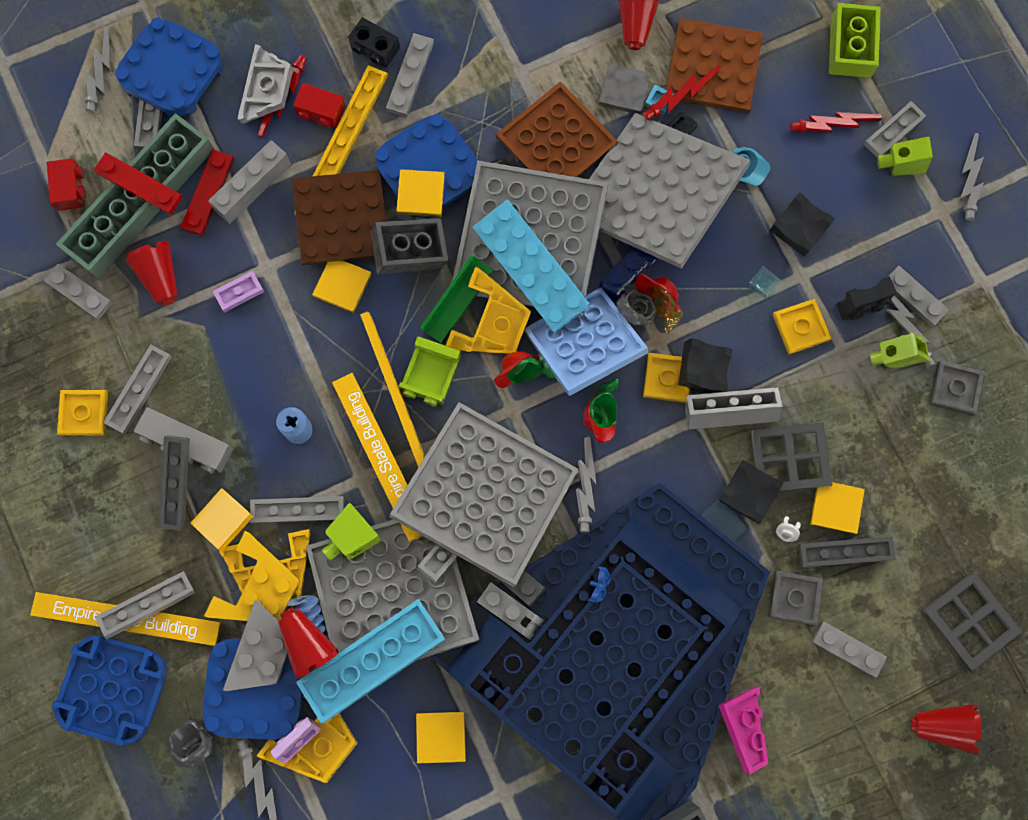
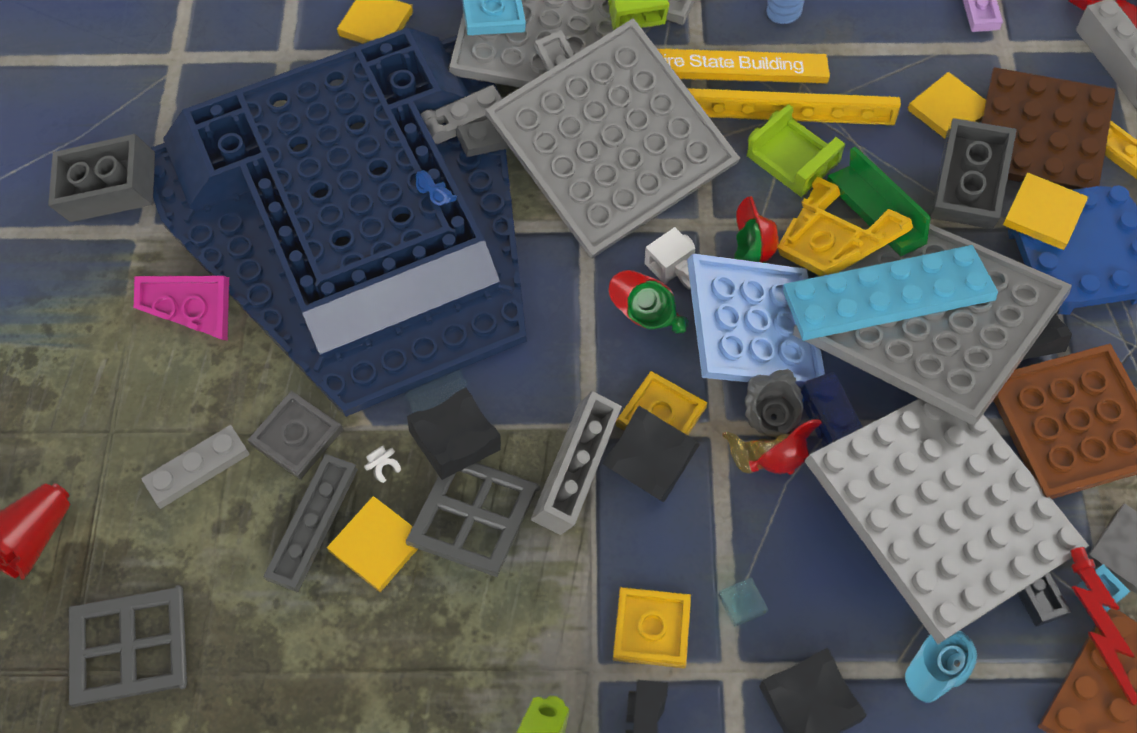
camera: 120 degrees right, 15 degrees down
(555, 417) = (669, 256): none -> white brick
(585, 498) = (549, 249): light grey piece -> none

